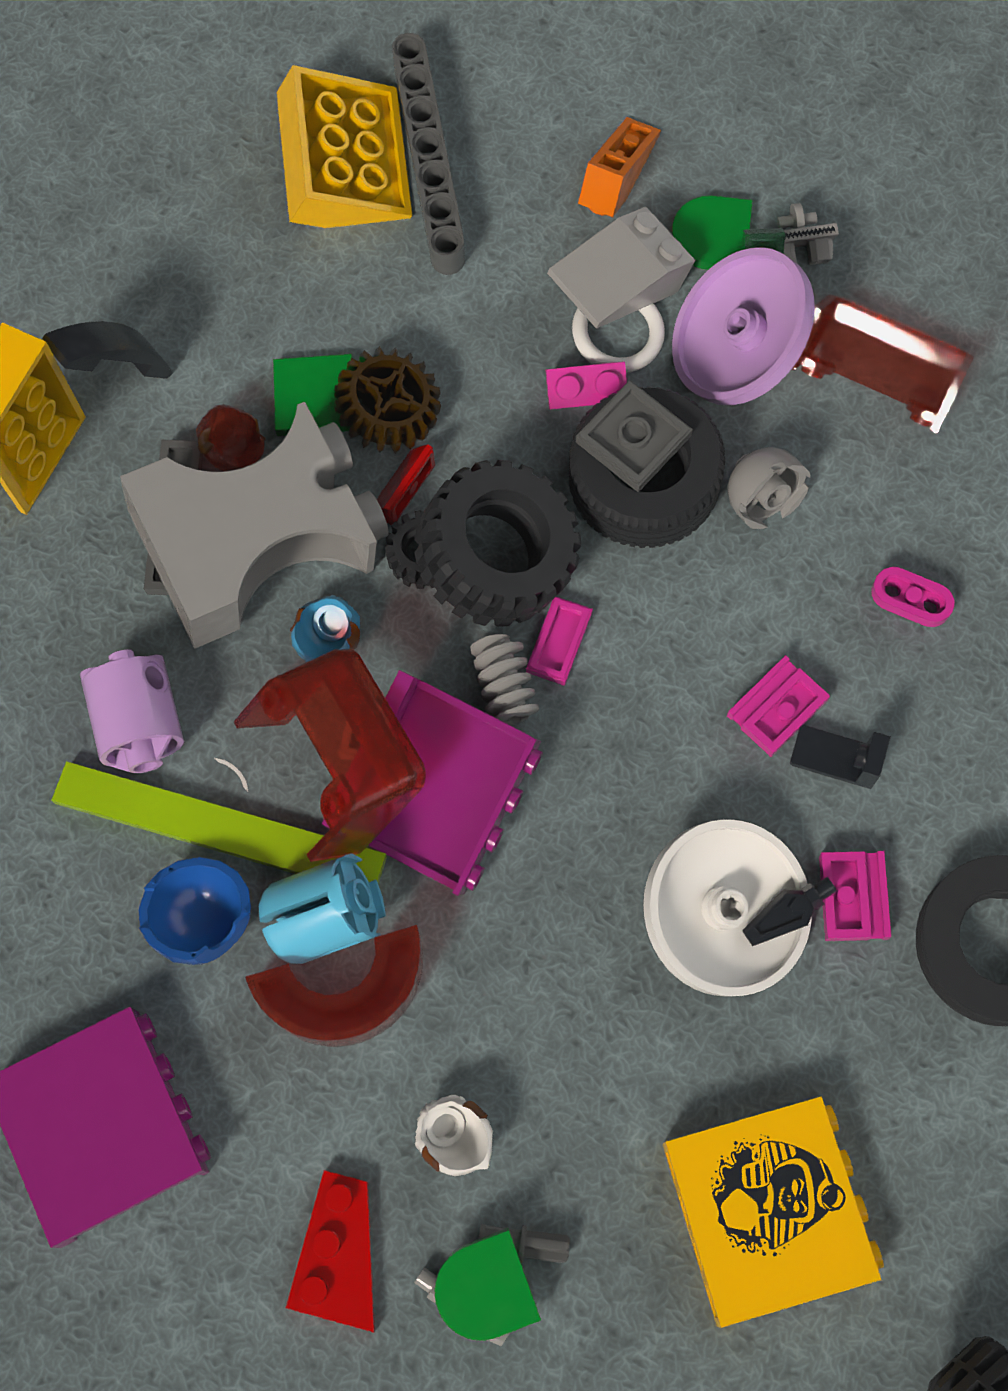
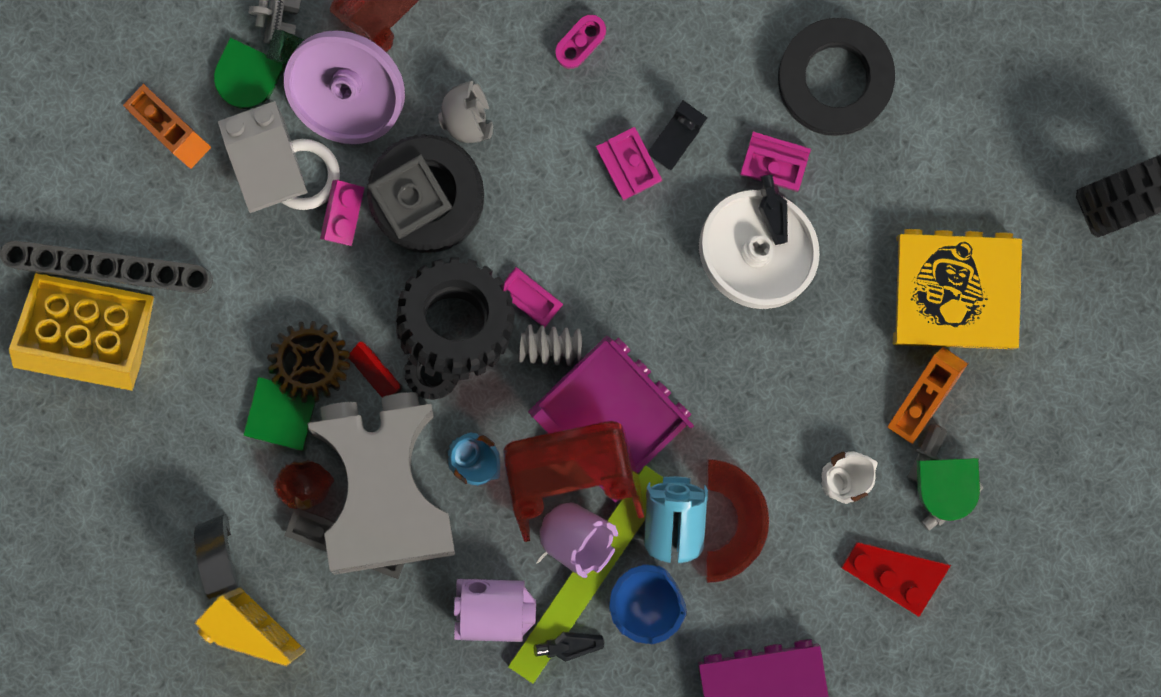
camera: 75 degrees left, 15 degrees up
(114, 830) = (570, 646): none -> black piece
(257, 789) = (577, 538): none -> lavender cylinder
(610, 1215) = (927, 394): none -> orange slope

